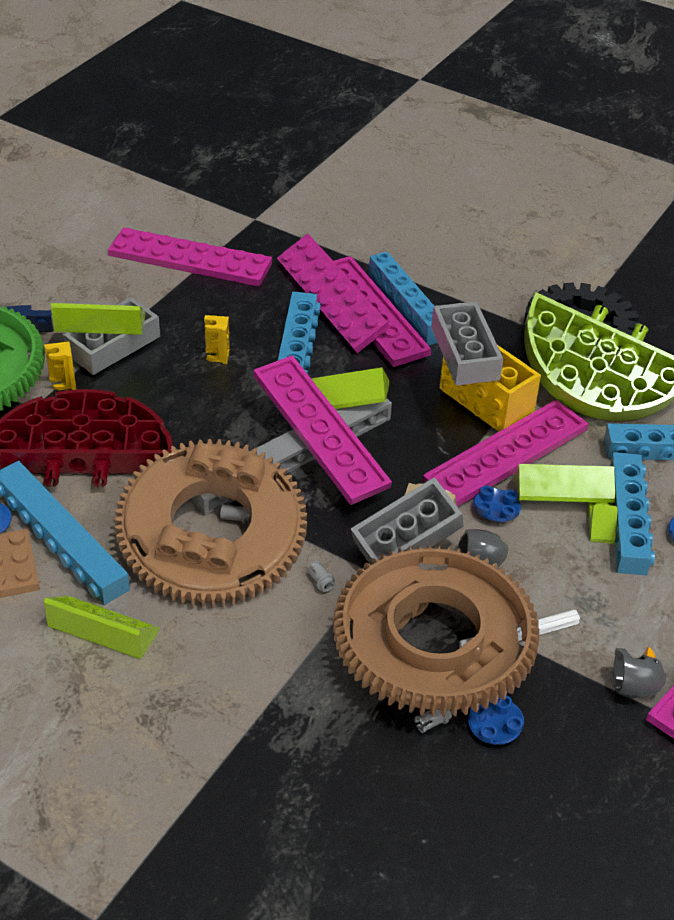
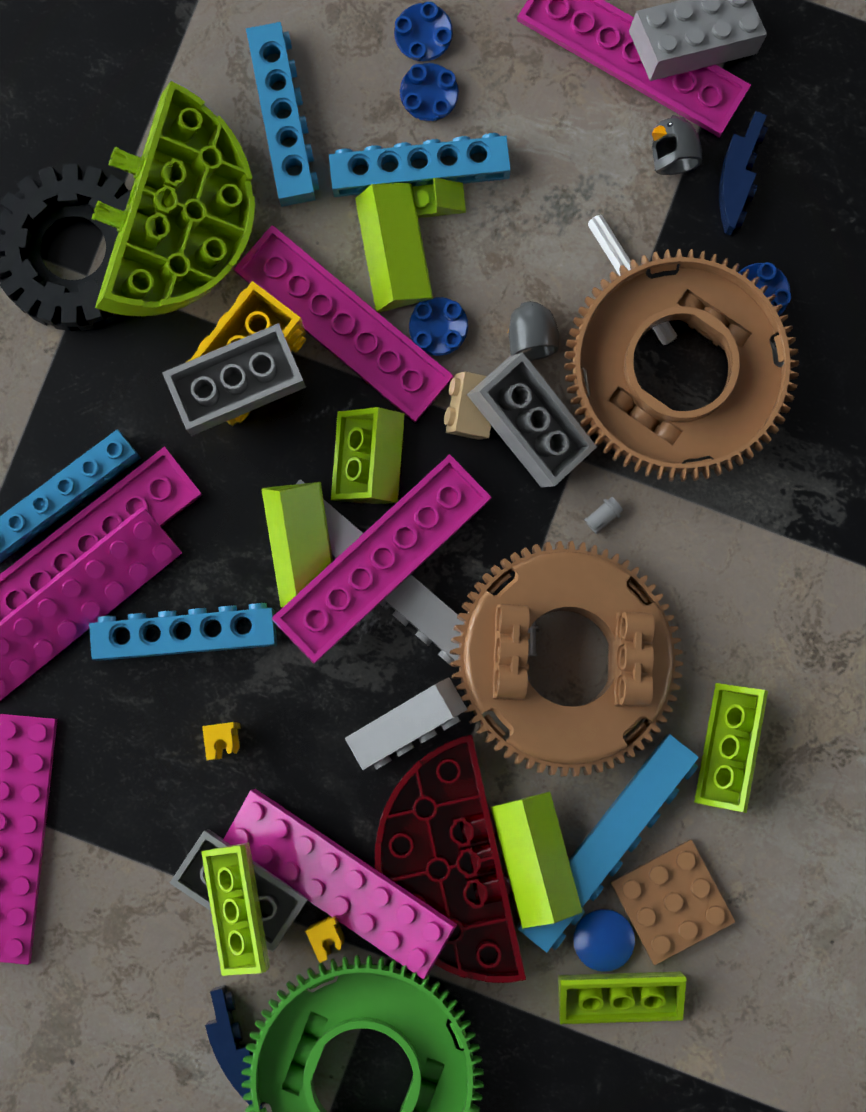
camera: 95 degrees left, 40 degrees up
(63, 477) = (536, 860): none -> lime slope
(92, 374) = (341, 884): none -> dark pink plate
(193, 419) = (405, 724): none -> light grey brick
(401, 449) = (367, 456): none -> lime slope
(603, 716) = (735, 180): none -> dark blue slope

